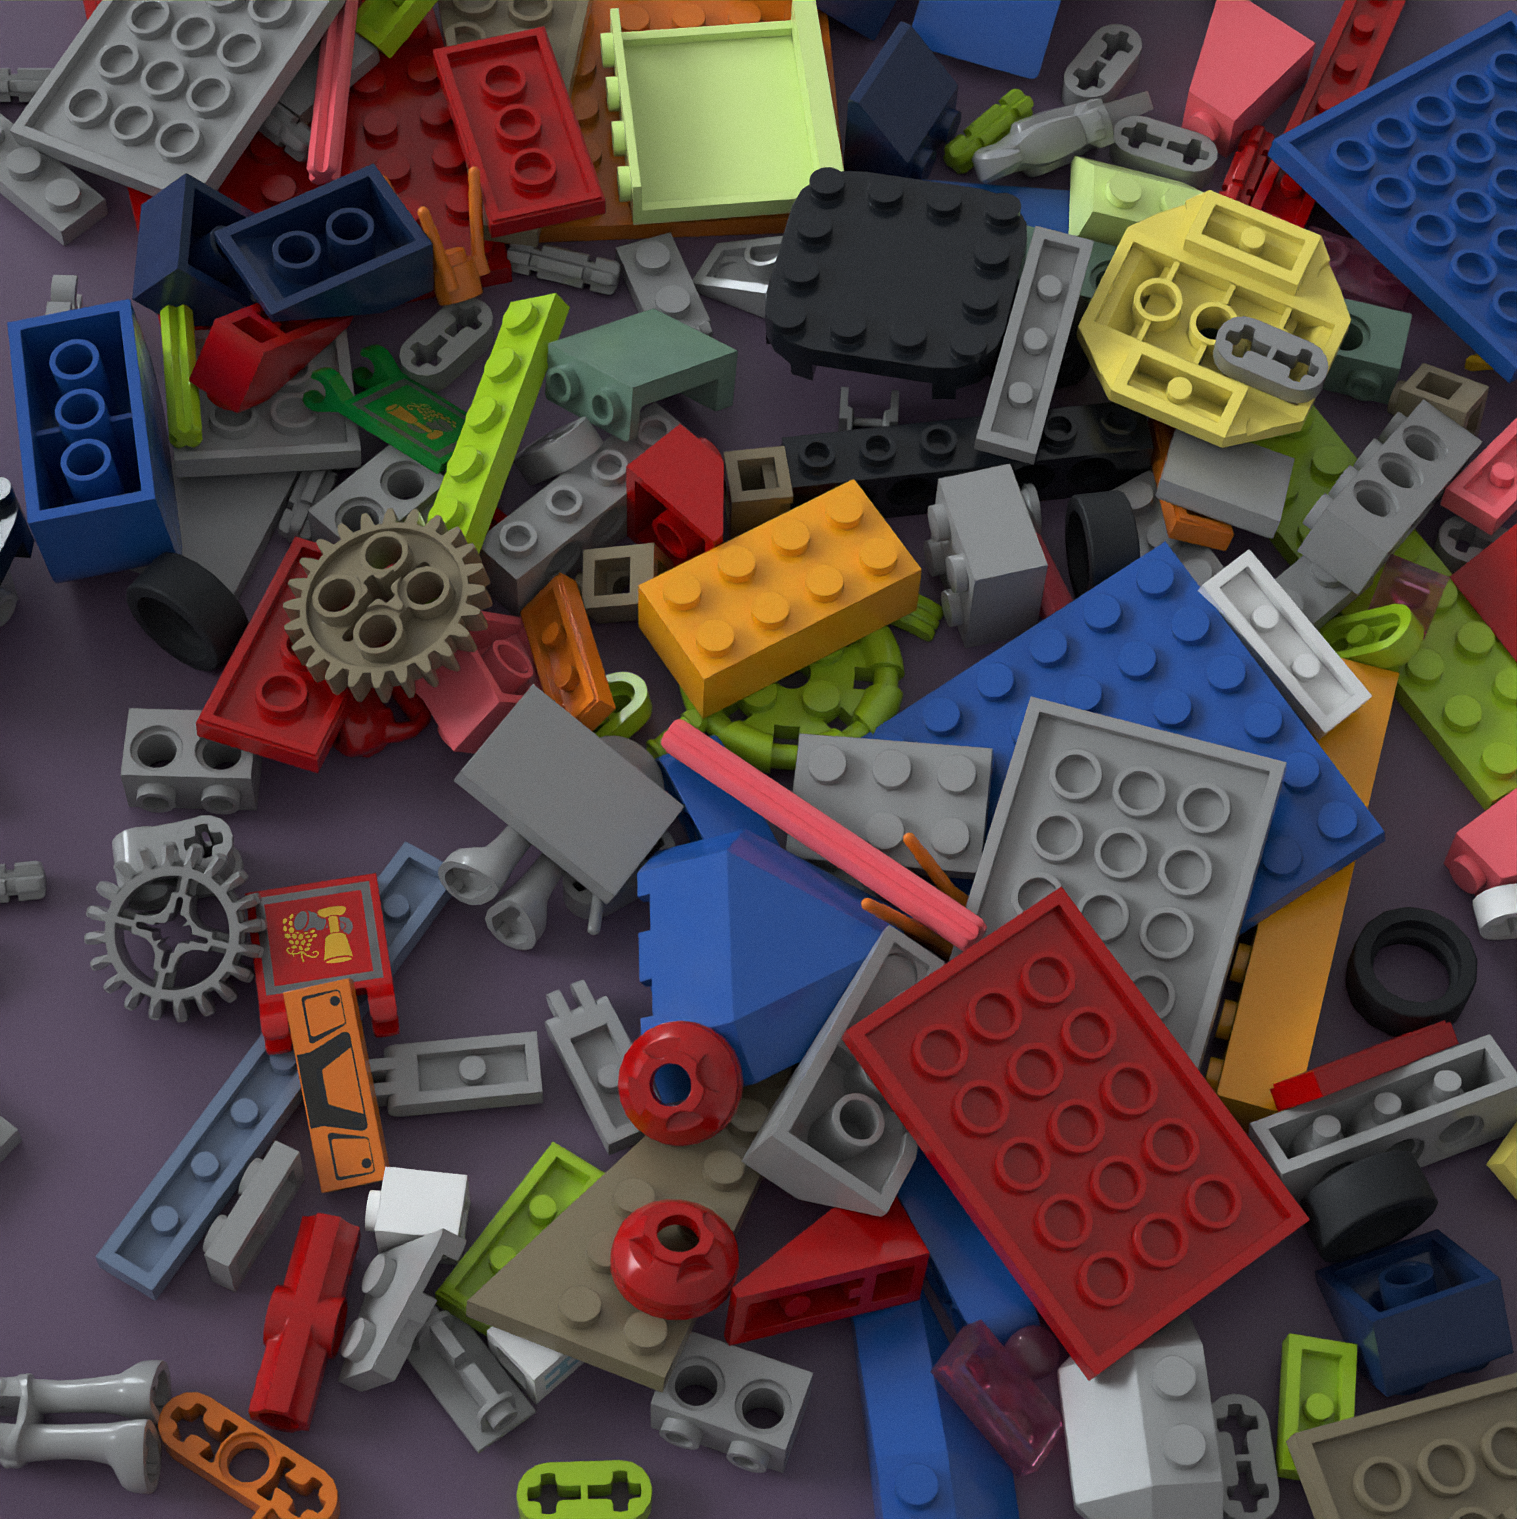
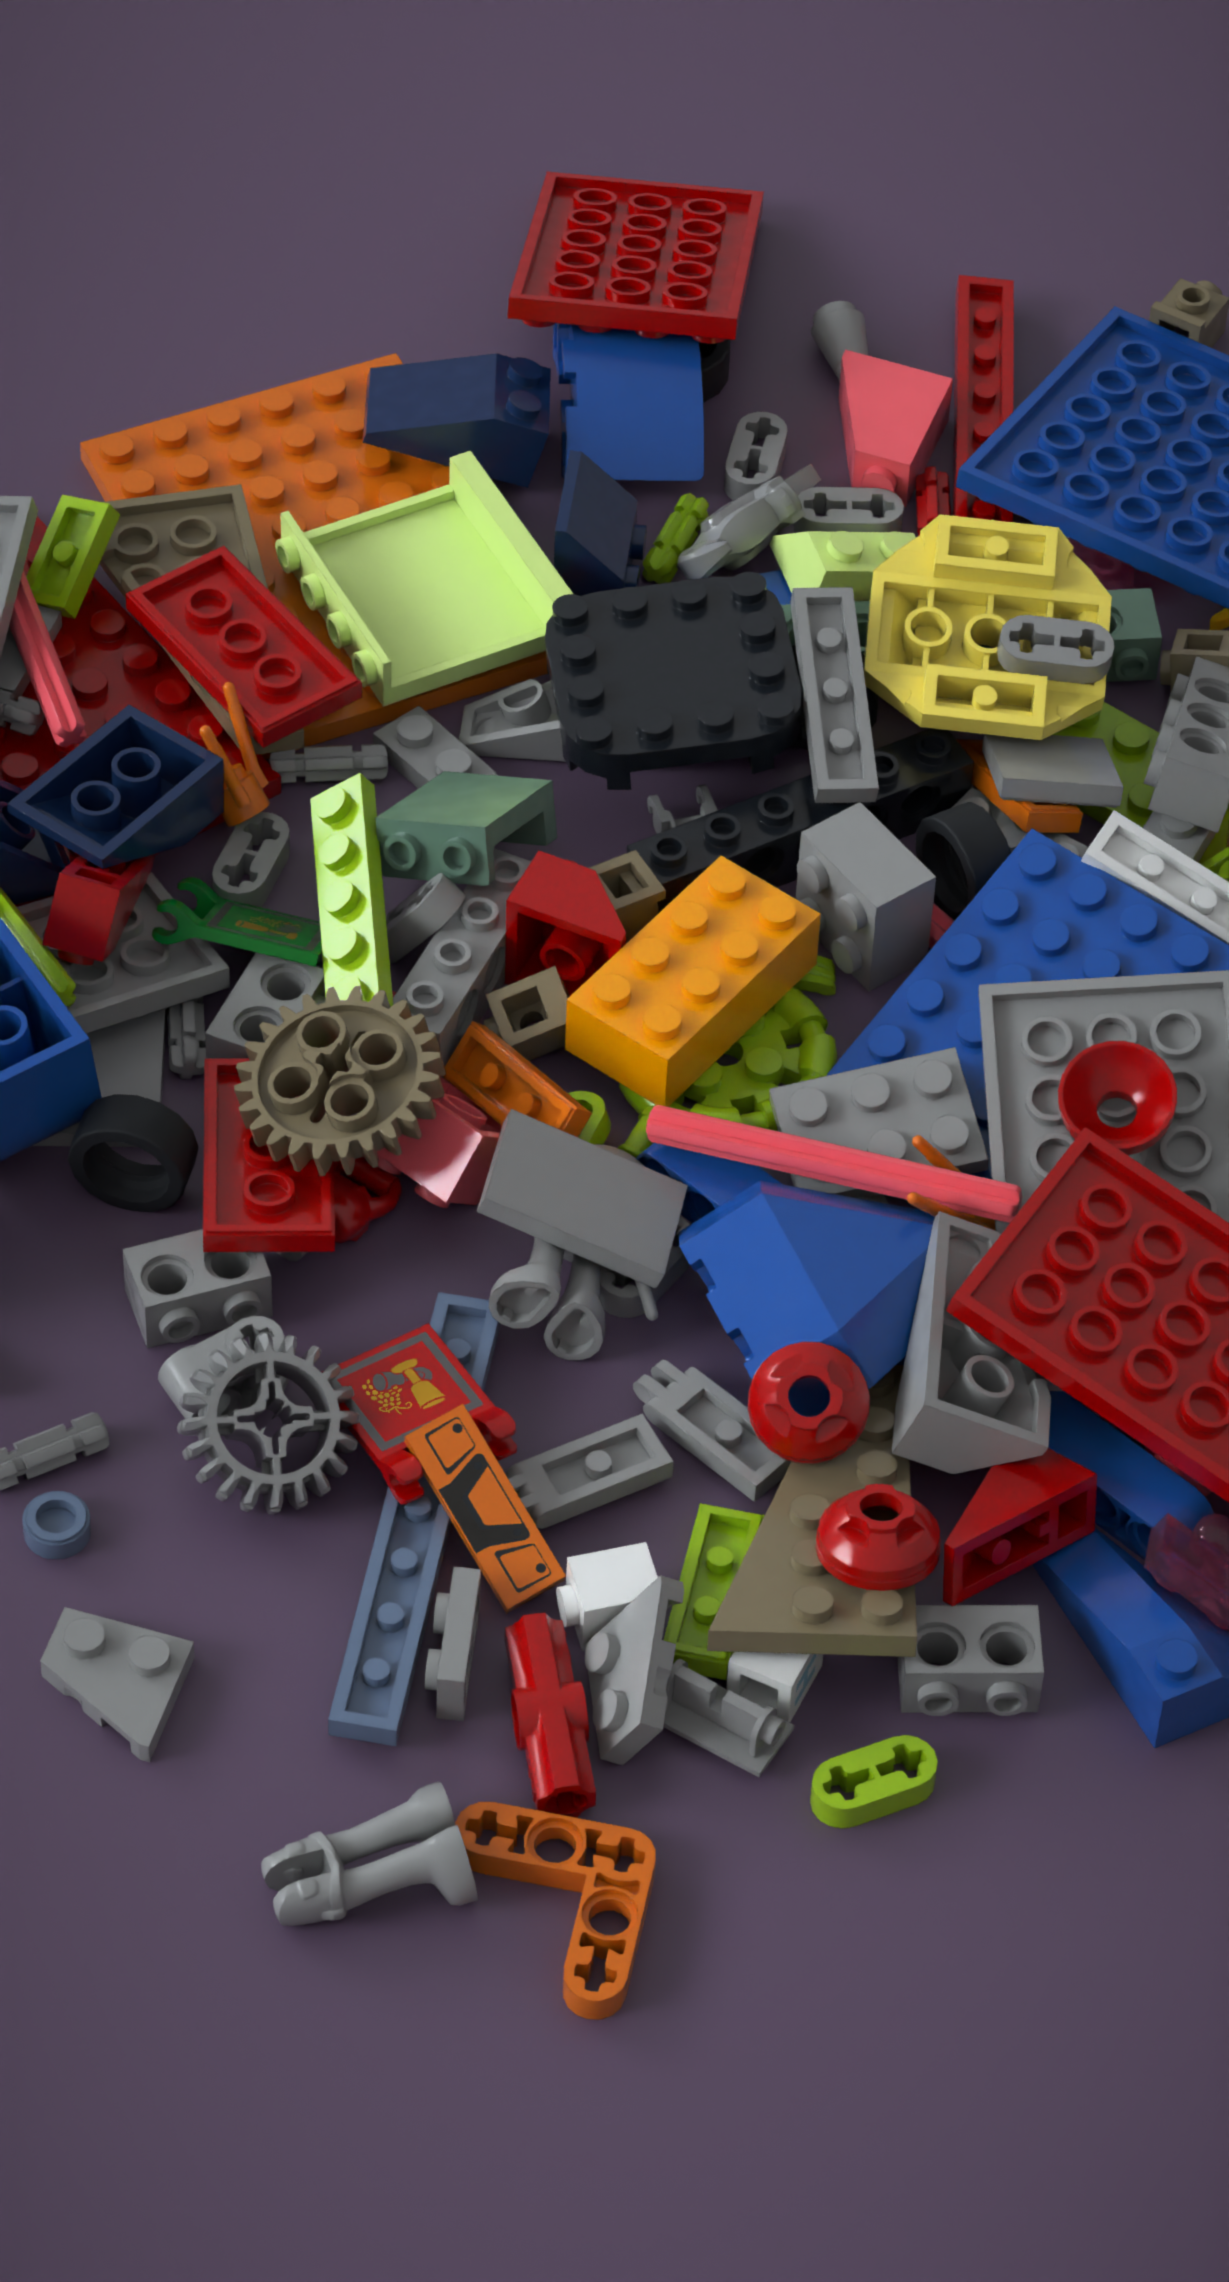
camera: 20 degrees left, 10 degrees down
(1104, 832) = (1121, 1072): none -> red piece

